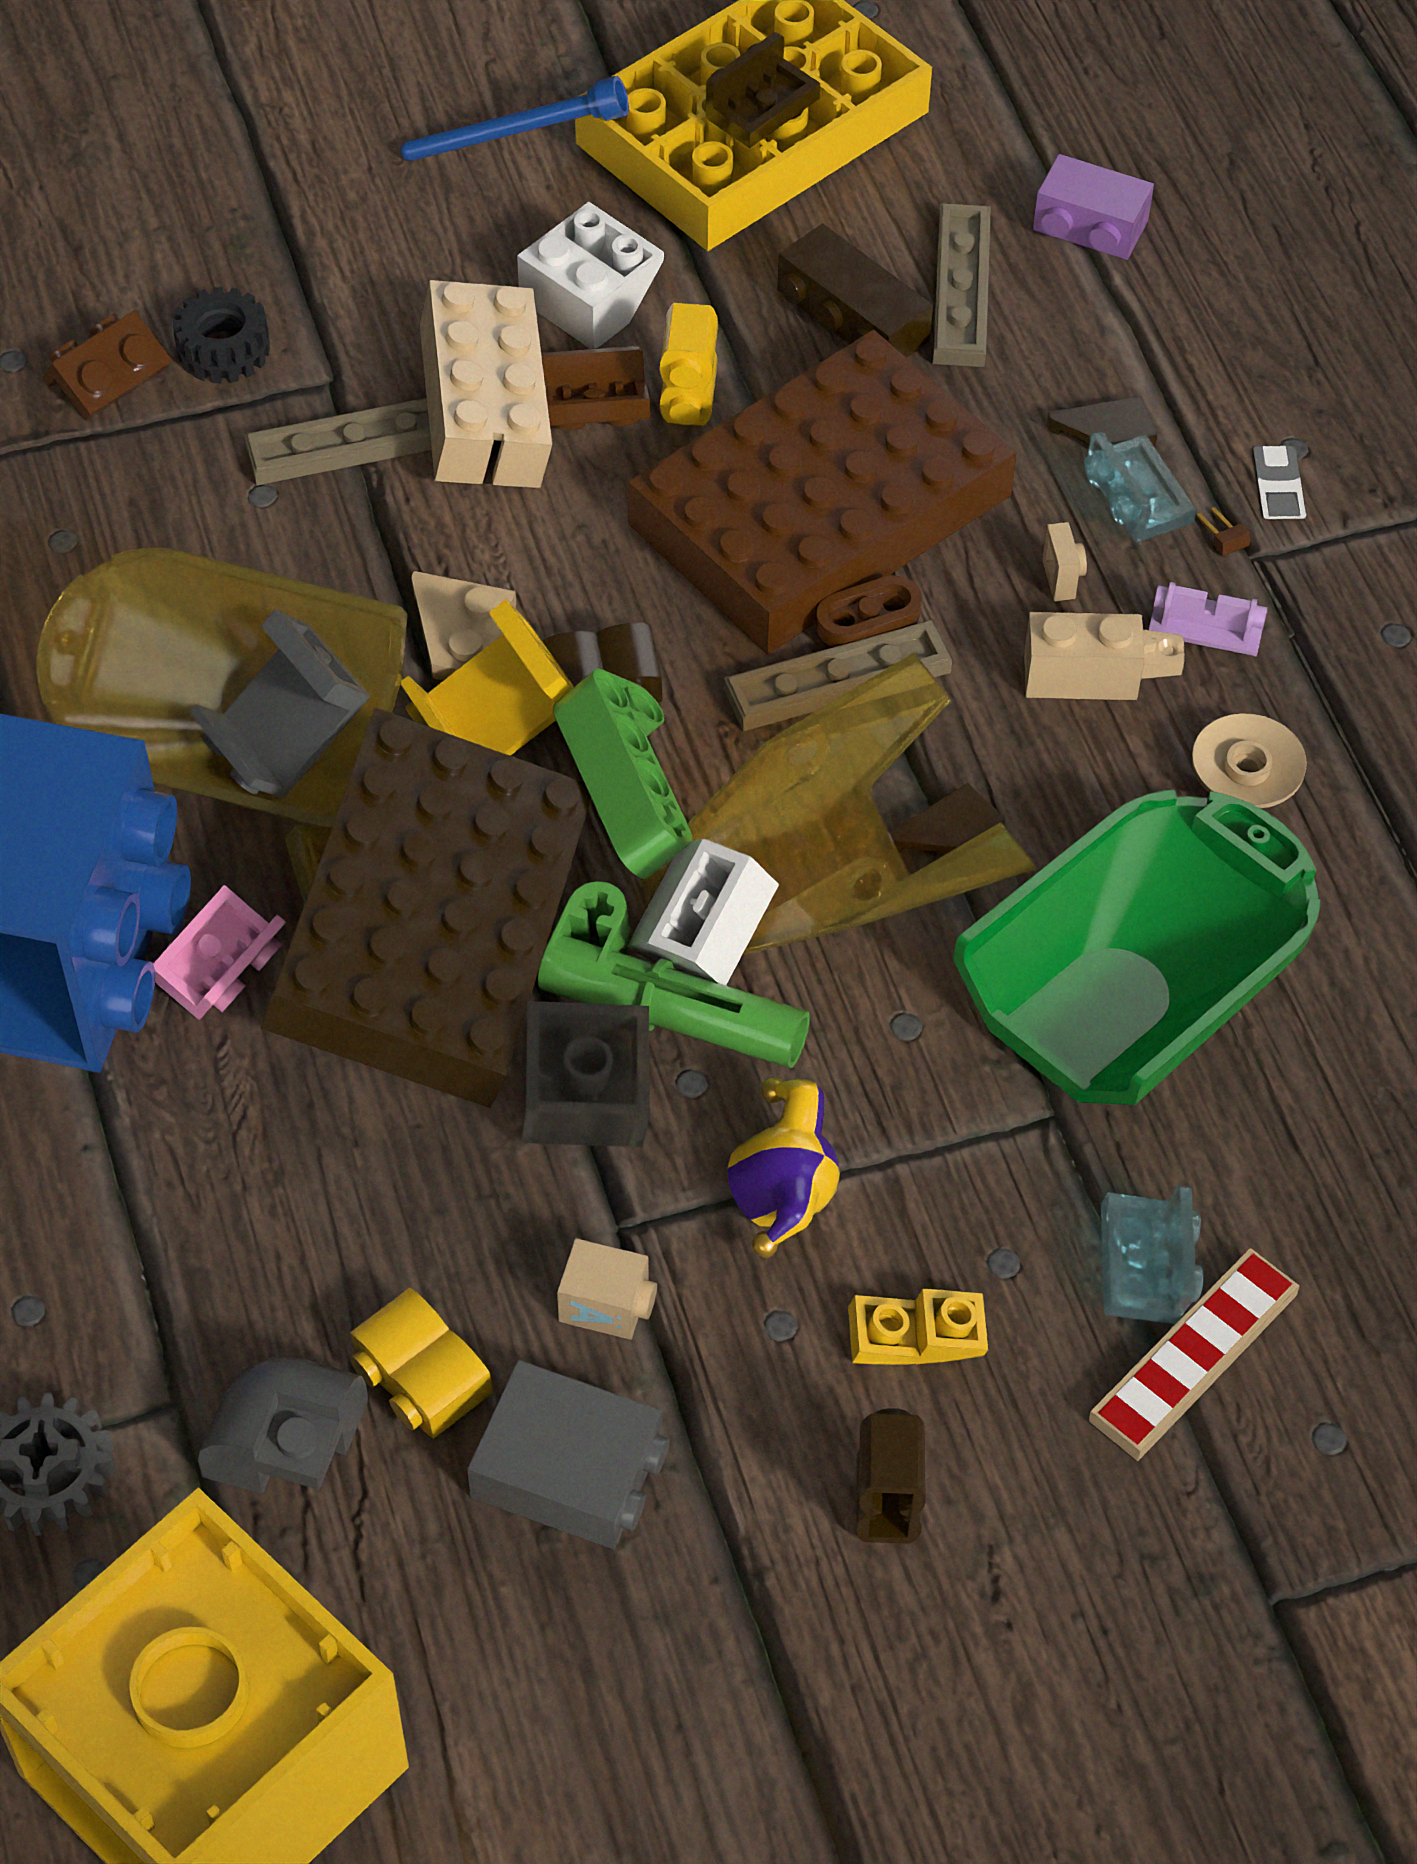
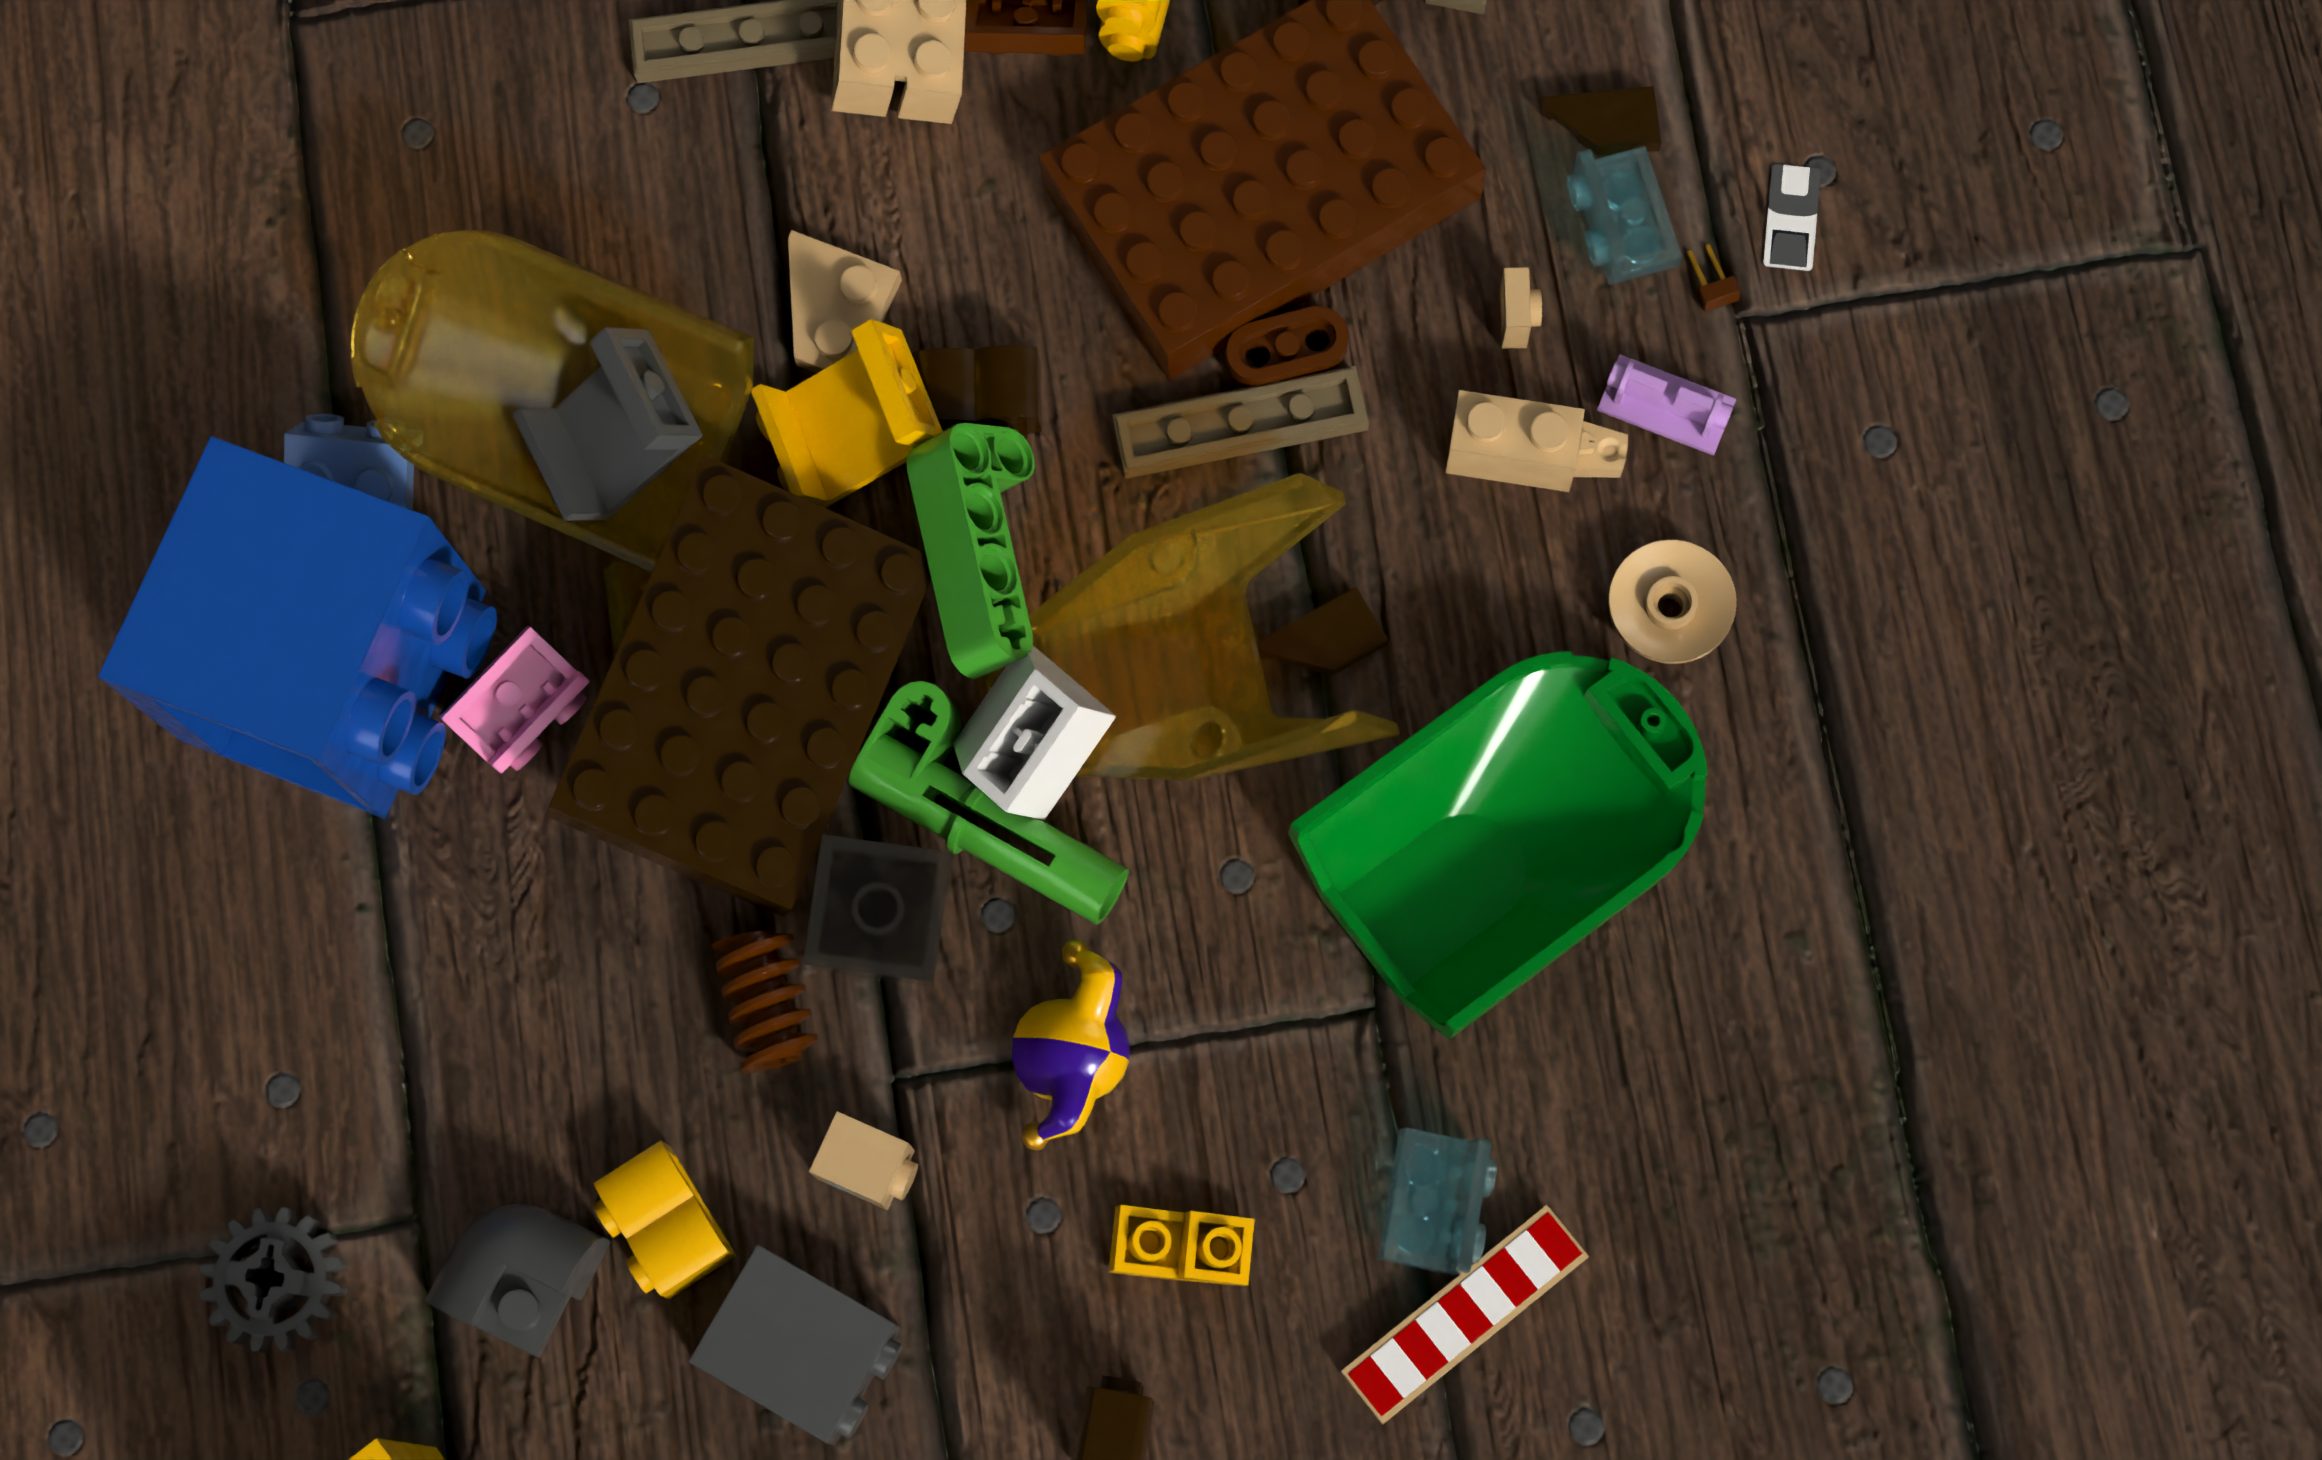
camera: 15 degrees right, 20 degrees up
(488, 1164) = (763, 999): none -> reddish brown piece

